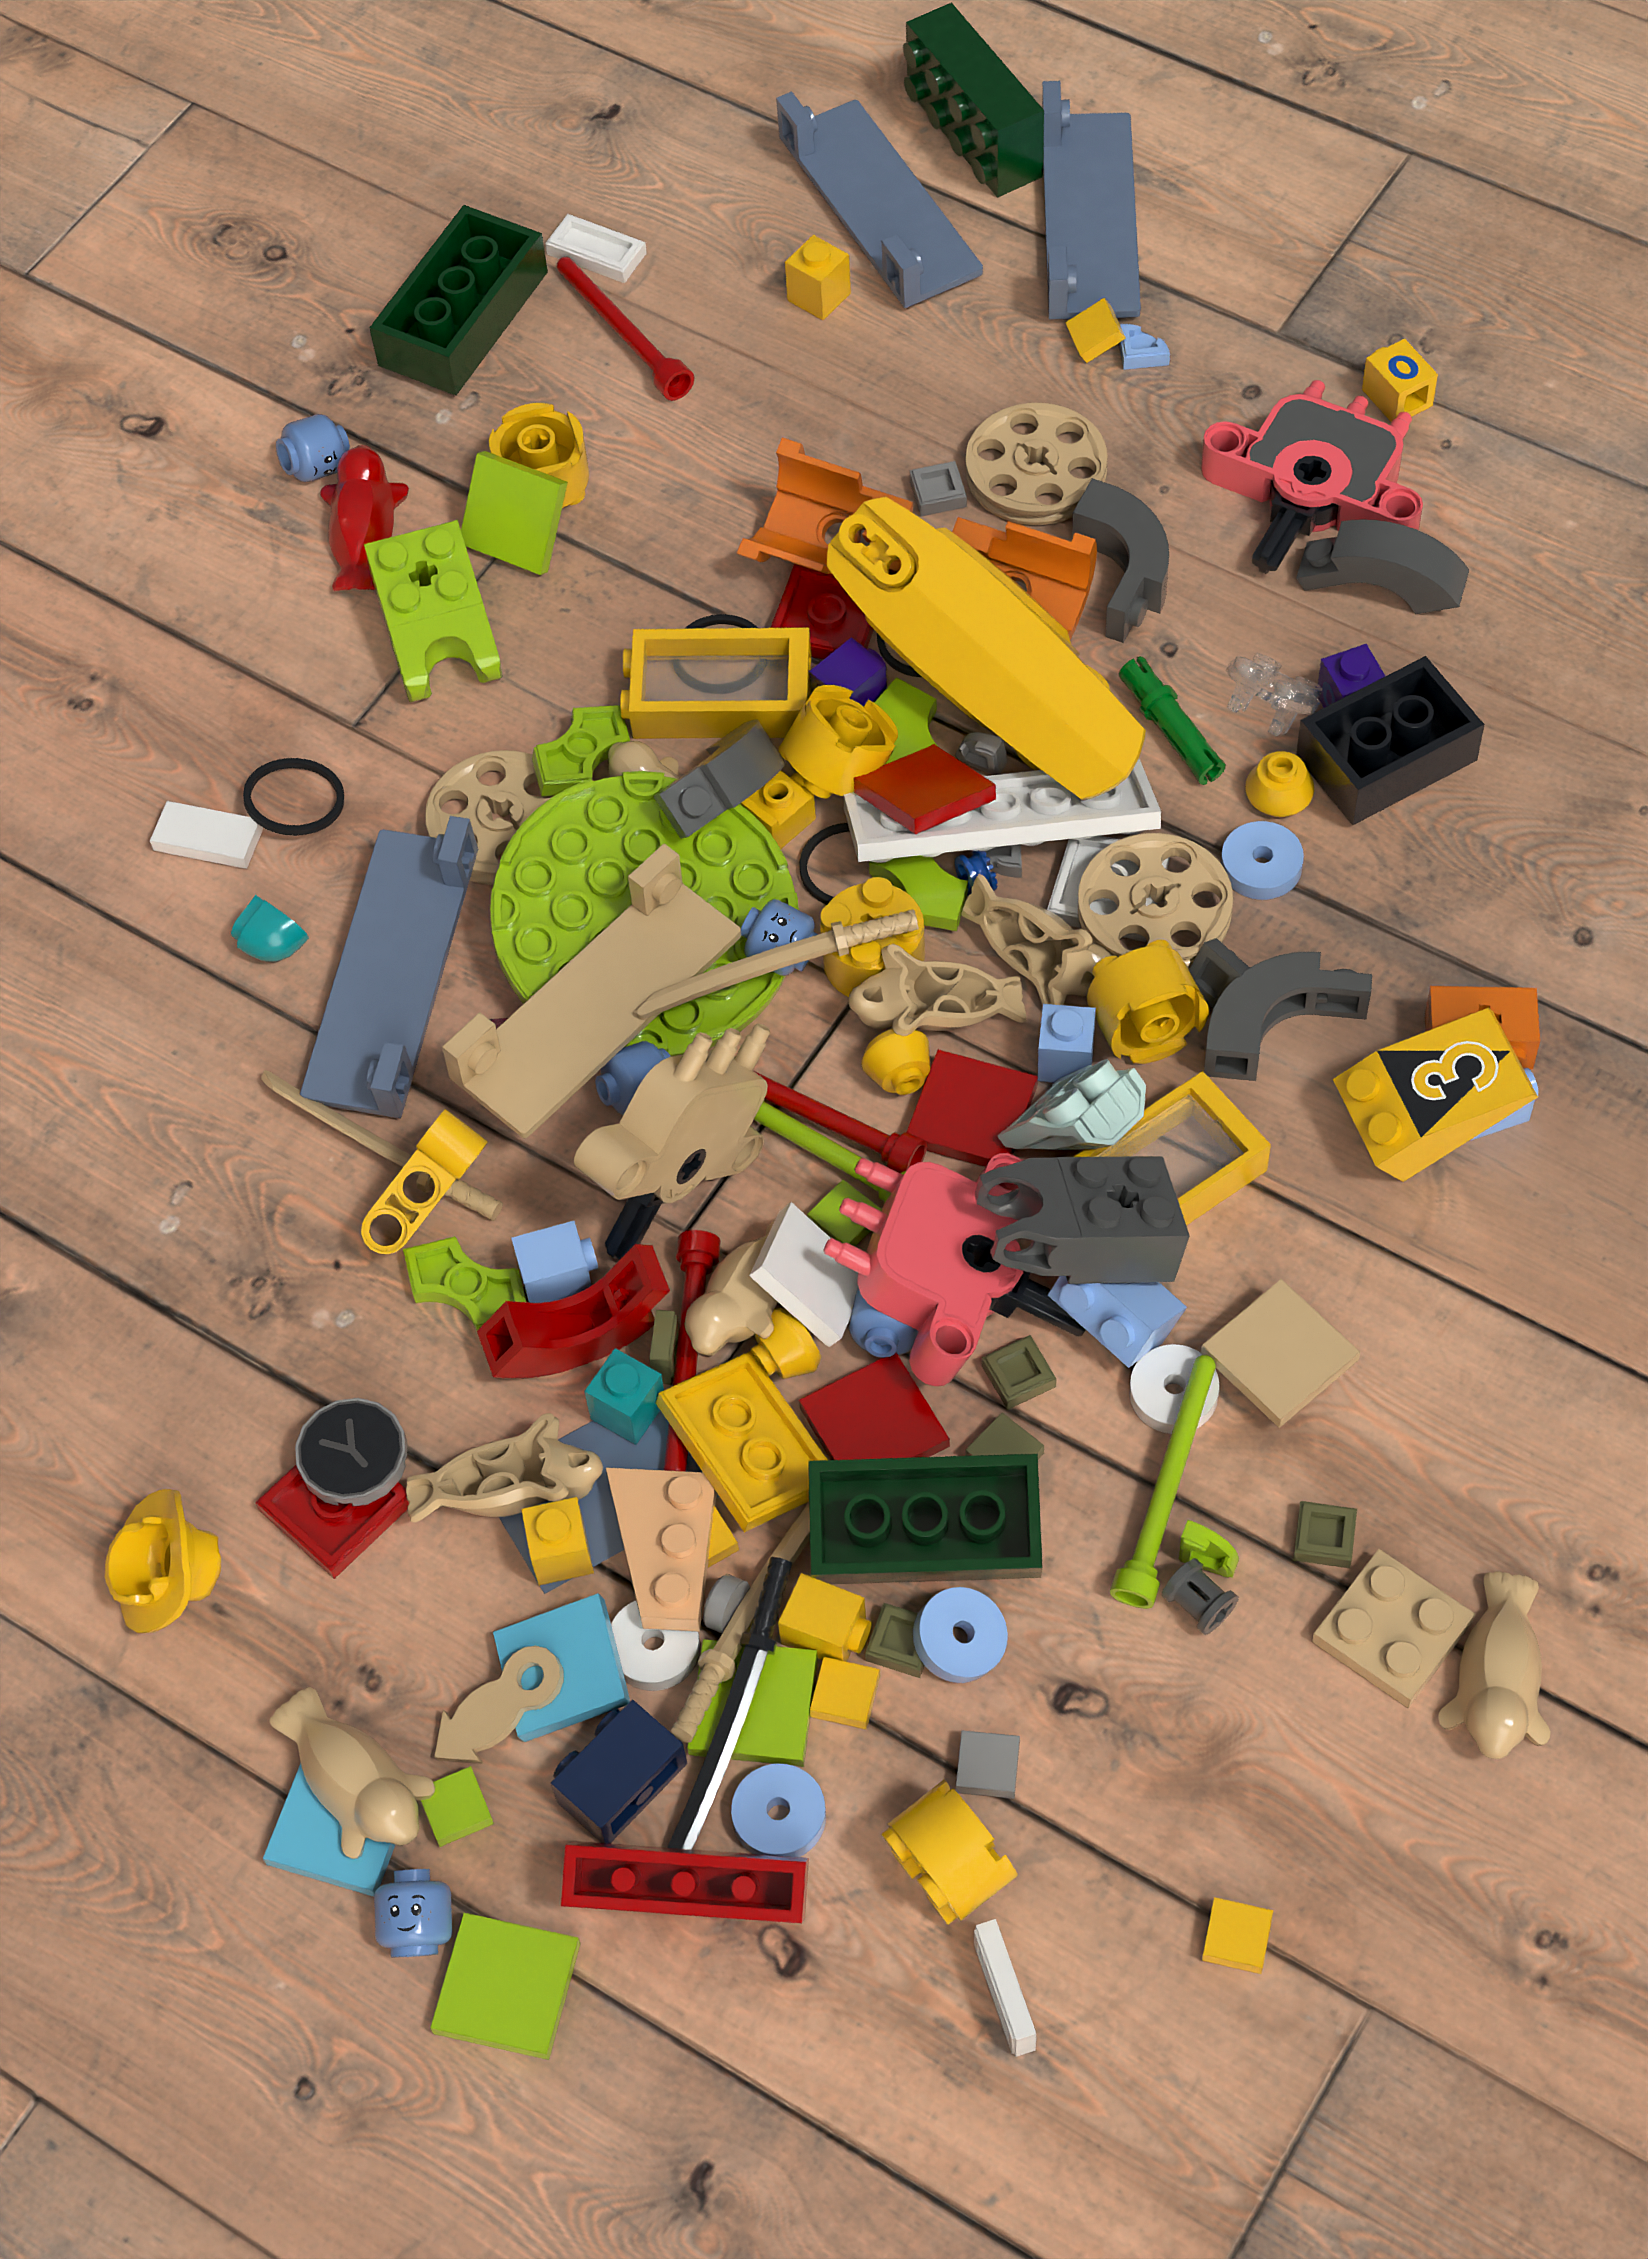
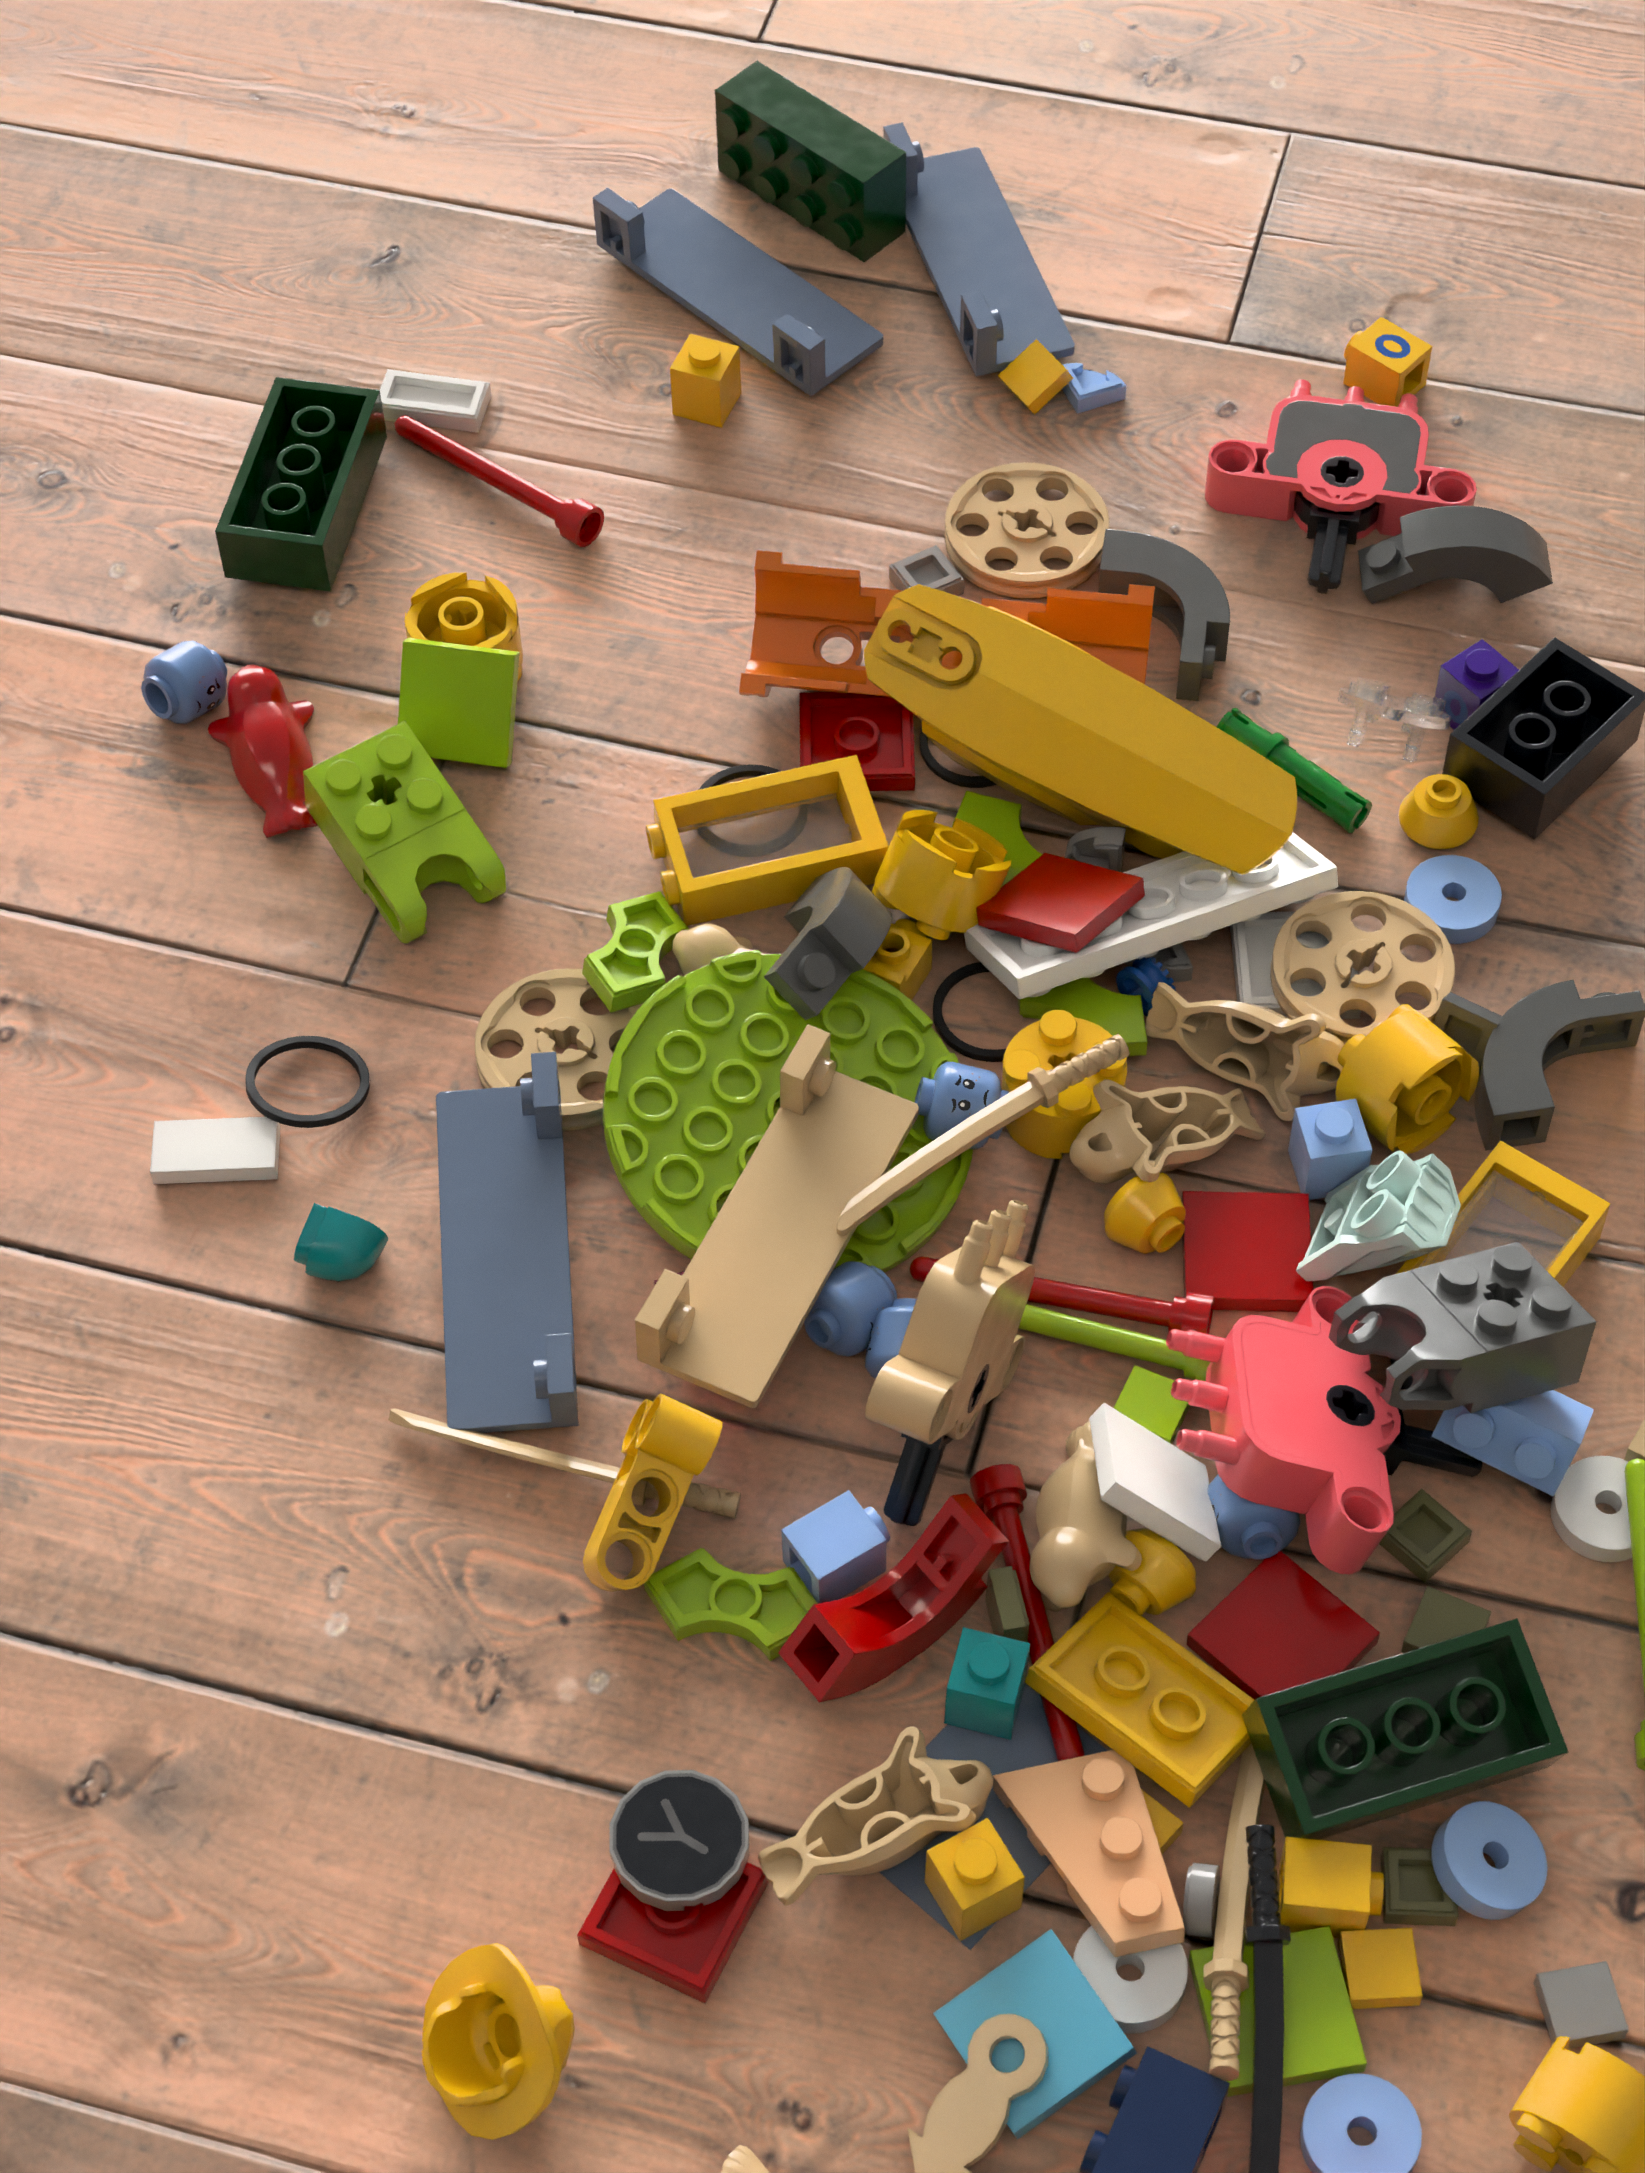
camera: 20 degrees left, 5 degrees down
(853, 669) = (916, 788): dark purple brick -> none

